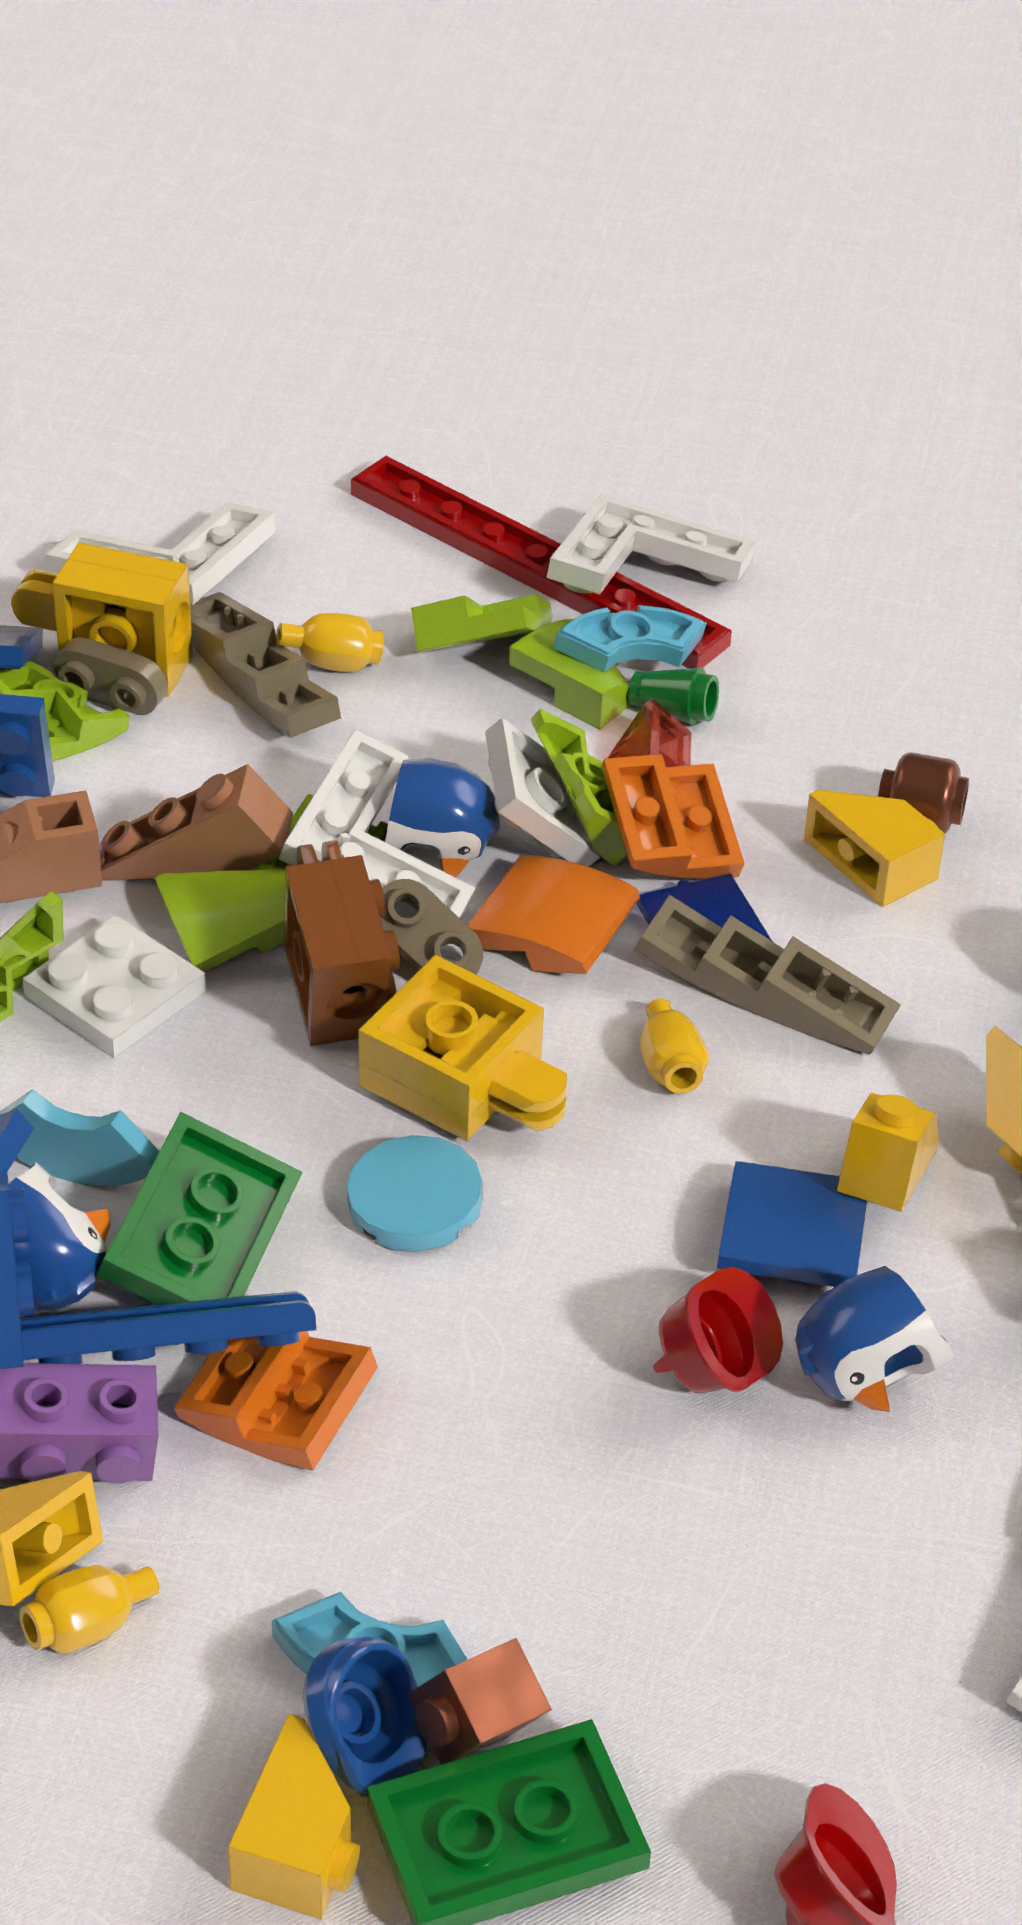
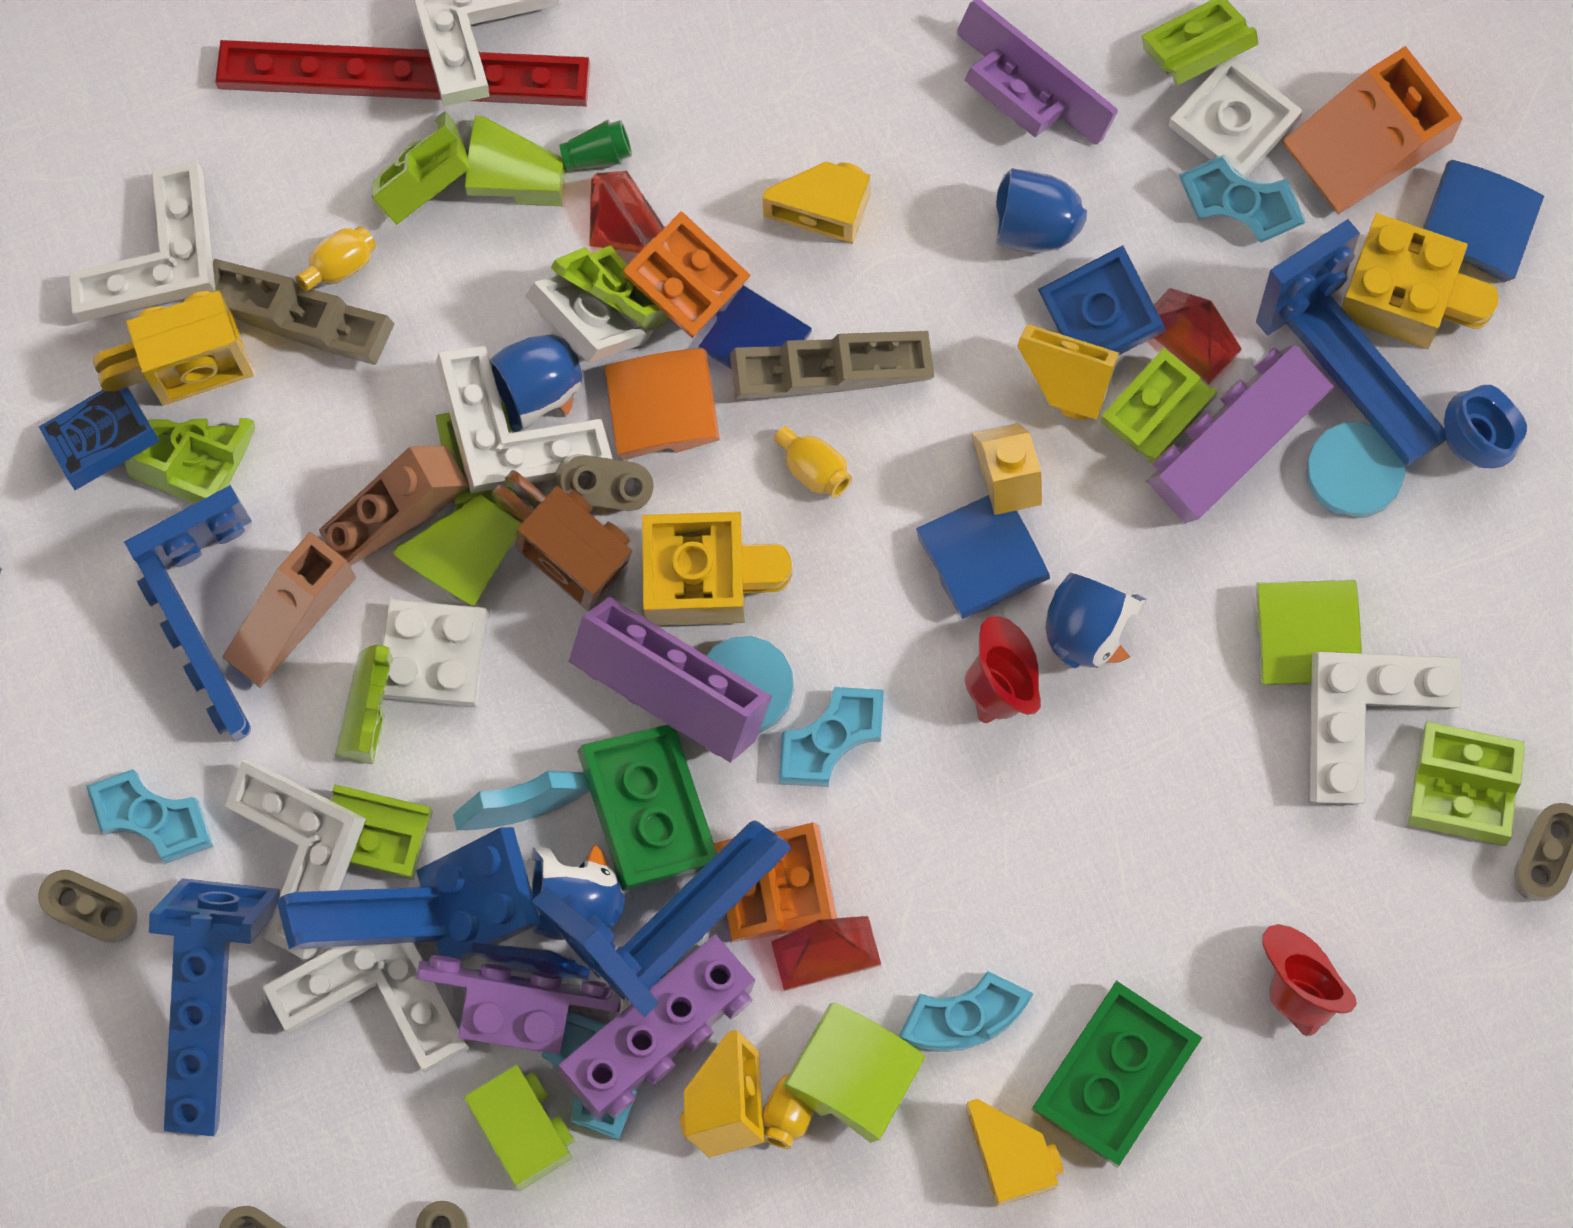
camera: 30 degrees left, 30 degrees up
(112, 675) = (229, 393): dark tan plate -> none
(188, 1612) = (854, 1071): none -> lime slope
(274, 1482) = (825, 951): none -> clear red slope
(333, 1120) = (669, 679): none -> medium lavender brick
(362, 1711) = (999, 1067): blue hat -> none
(439, 1295) = (813, 751): none -> medium azure tile
(478, 1702) = (1055, 1018): brick -> none
(627, 635) = (535, 119): medium azure tile -> none
(928, 785) = (825, 135): copper head -> none

